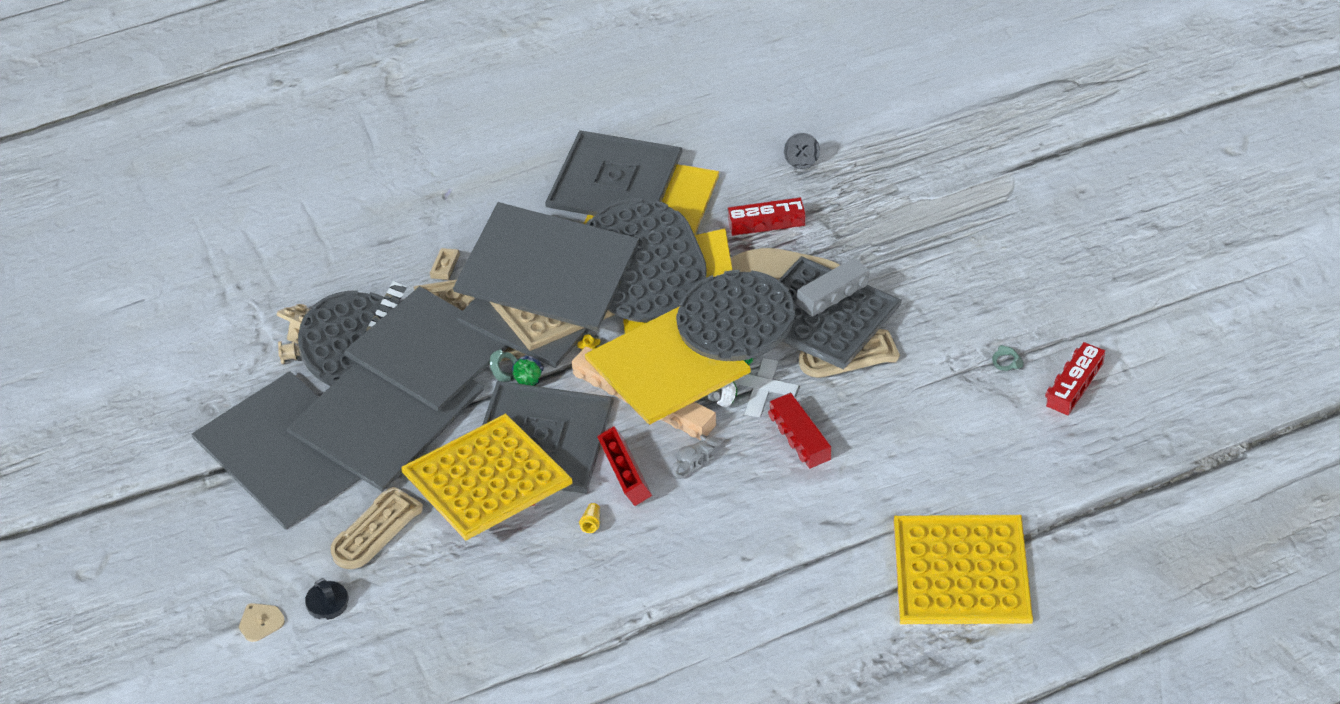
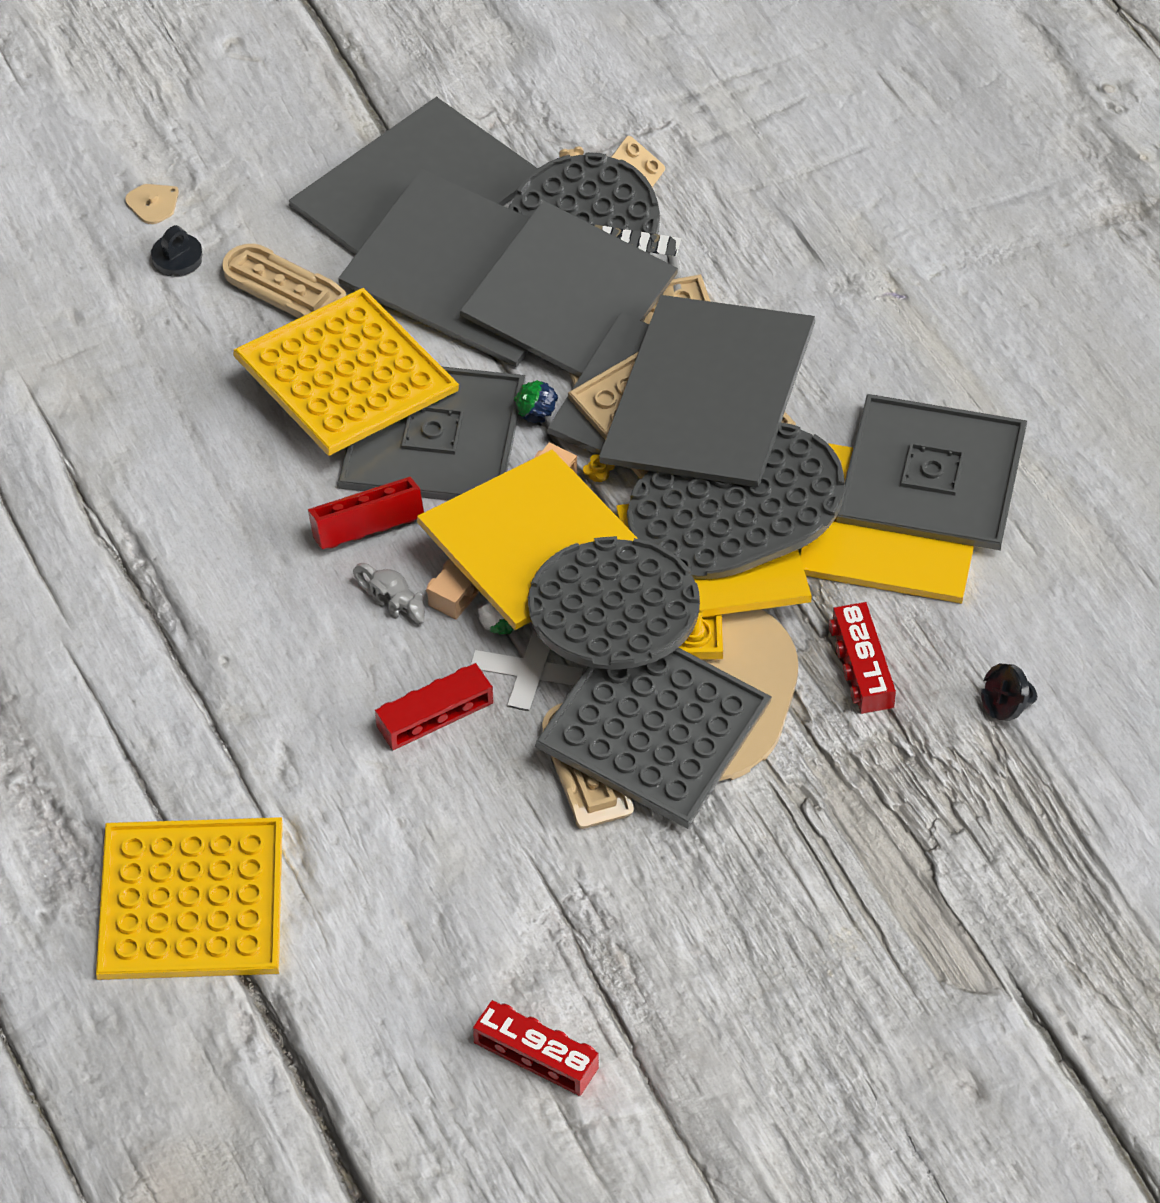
camera: 85 degrees right, 5 degrees up
(444, 264) = (743, 296): tan plate -> none
(495, 358) = (556, 365): sand green piece -> none
(590, 518) = (288, 489): yellow cone -> none
(832, 287) = (682, 721): light grey brick -> none
(1017, 363) = (581, 979): sand green piece -> none

